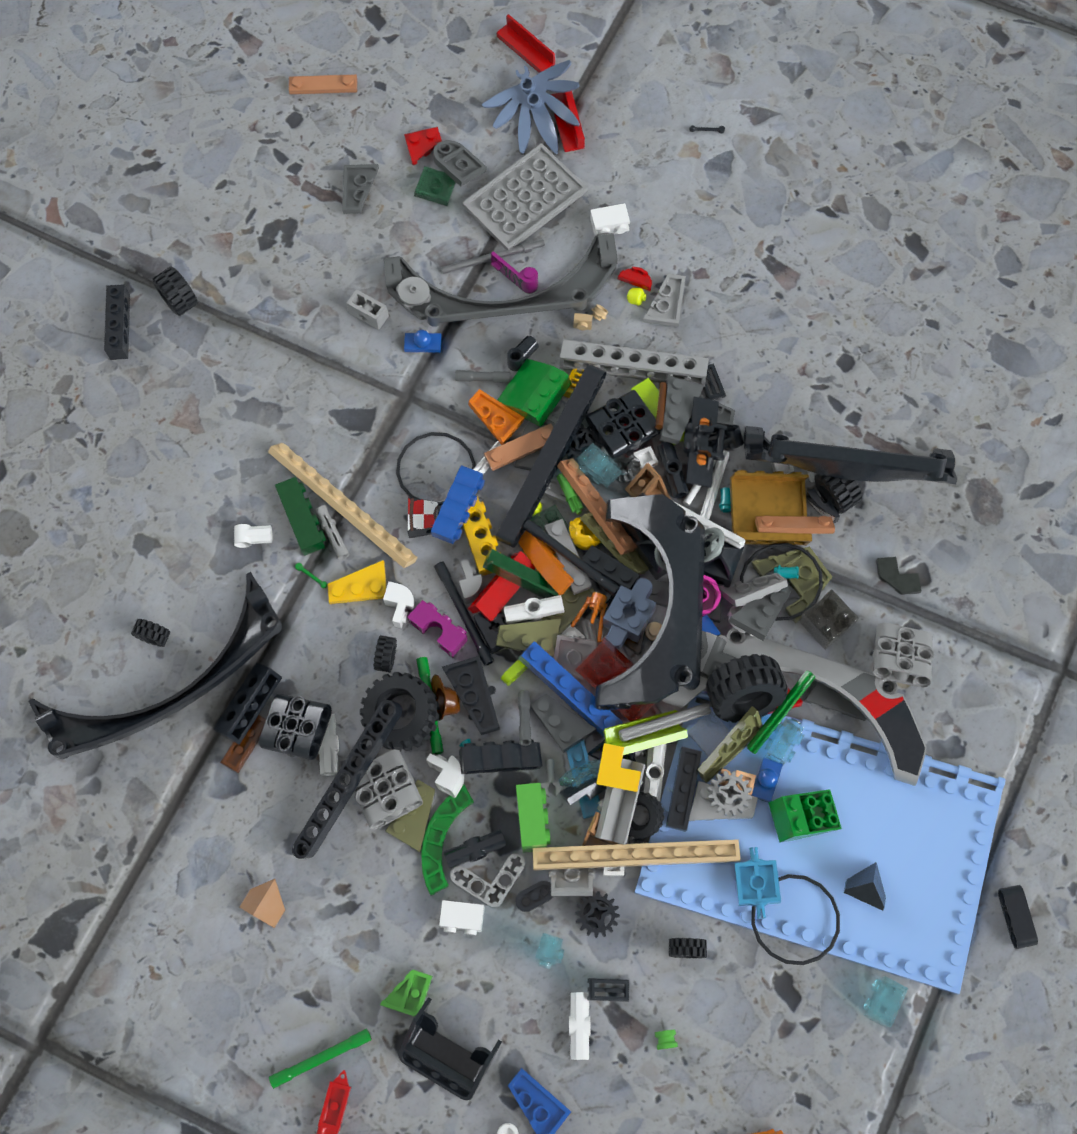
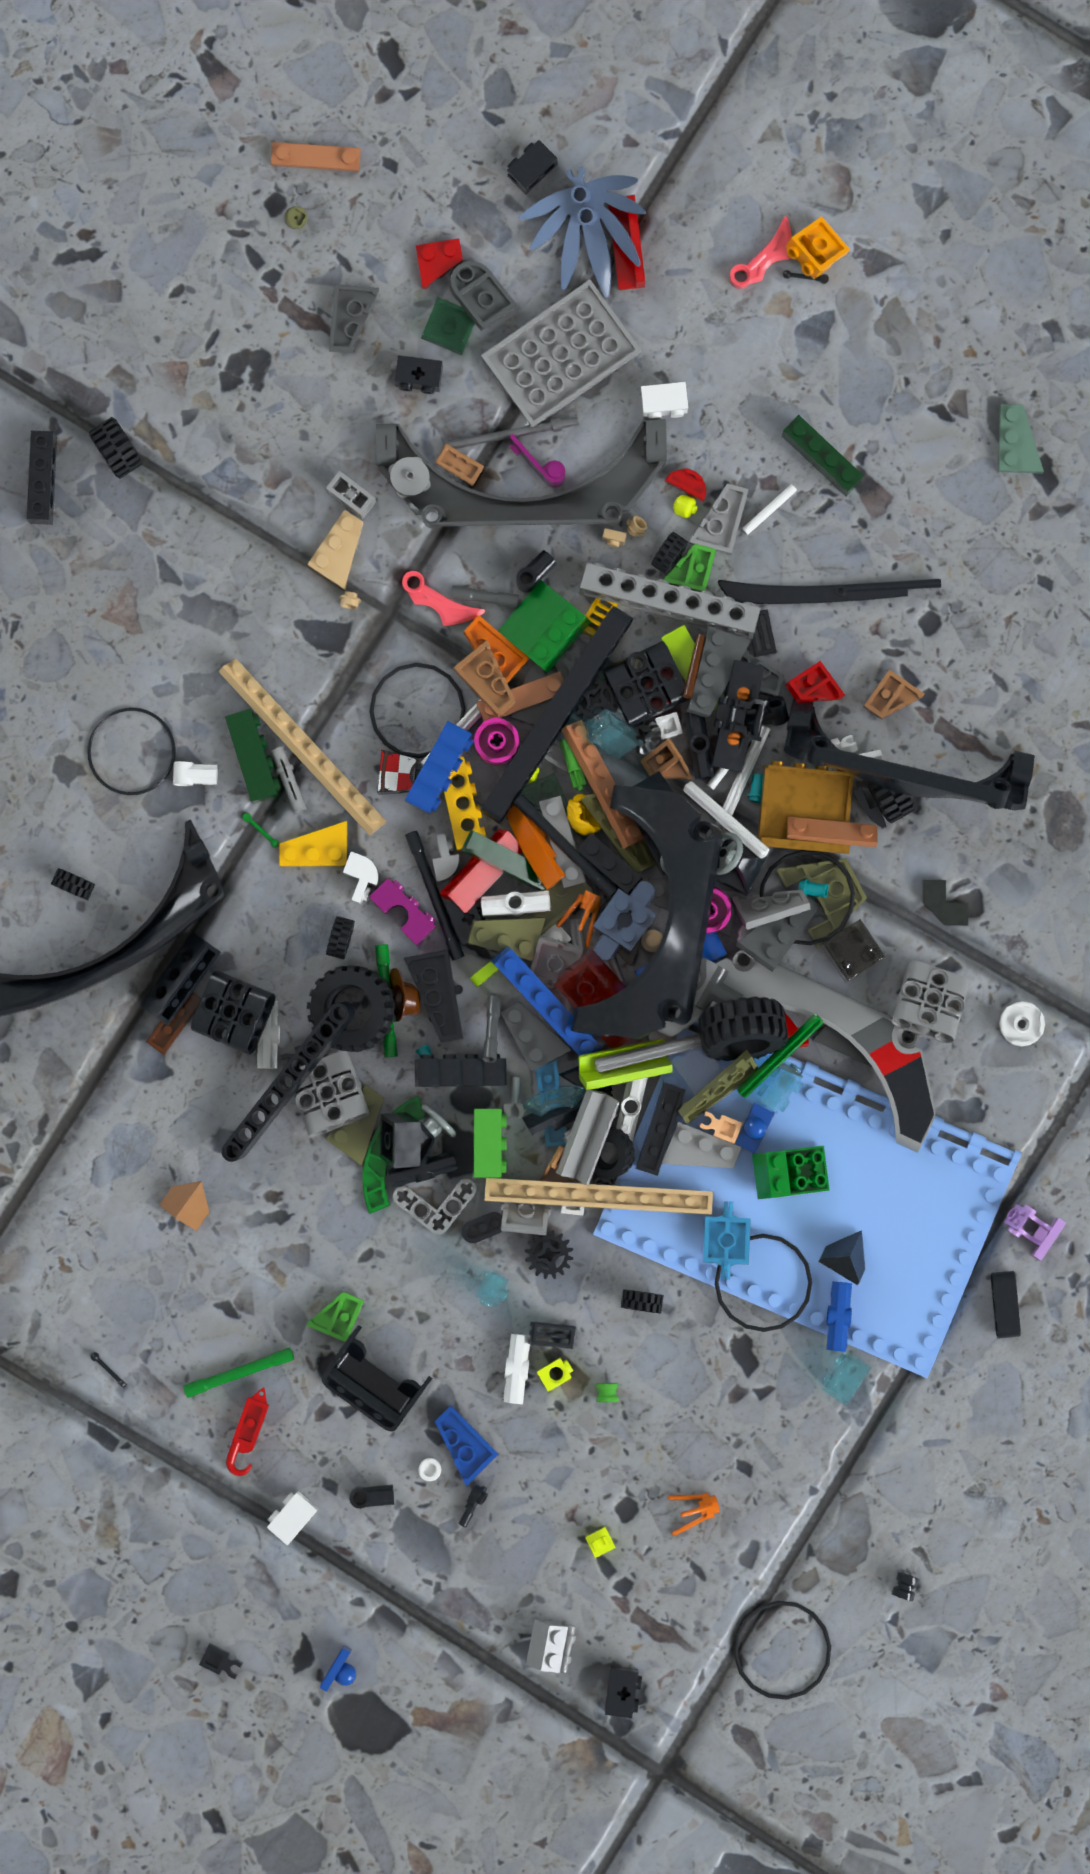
camera: 10 degrees right, 15 degrees up
(185, 1058) = (95, 1357): none -> black hinge
(188, 493) = (138, 792): none -> black piece
(310, 124) = (295, 217): none -> olive tile
(360, 354) = (337, 550): none -> tan wing
(372, 389) = (349, 600): none -> tan plate
(414, 220) = (409, 367): none -> black brick
(422, 342) = (415, 542): blue tile -> none
(450, 778) = (403, 1088): white brick -> none
(452, 281) = (459, 464): none -> medium nougat plate
(455, 390) = (449, 610): none -> coral piece
(460, 820) = (407, 1140): none -> black piece
(461, 917) = (401, 1241): white brick -> none
(488, 73) = (531, 166): none -> black brick
(489, 432) = (485, 679): none -> medium nougat wing
(494, 479) = (489, 752): none -> dark pink brick
(526, 45) = (585, 129): red panel -> none
(606, 1029) = (551, 1383): none -> neon yellow brick
(612, 774) = (582, 1110): yellow tile -> none
(629, 326) = (669, 553): none -> black tyre
(650, 337) = (693, 568): none -> bright green wing
(683, 112) = (770, 254): none -> coral piece
(712, 106) = (816, 248): none -> light orange plate
(714, 280) = (769, 509): none -> white bar
(739, 795) = (704, 1156): light grey gear -> none
(740, 247) = (822, 455): none -> dark green brick
(760, 347) = (821, 594): none -> black piece
(761, 414) = (814, 685): none -> red wing
(825, 417) = (892, 695): none -> medium nougat wing
(870, 942) = (839, 1316): none -> blue piece
(890, 225) = (1016, 442): none -> sand green wing
(990, 661) = (1033, 1021): none -> white plate
(1039, 850) = (1043, 1236): none -> lavender tile

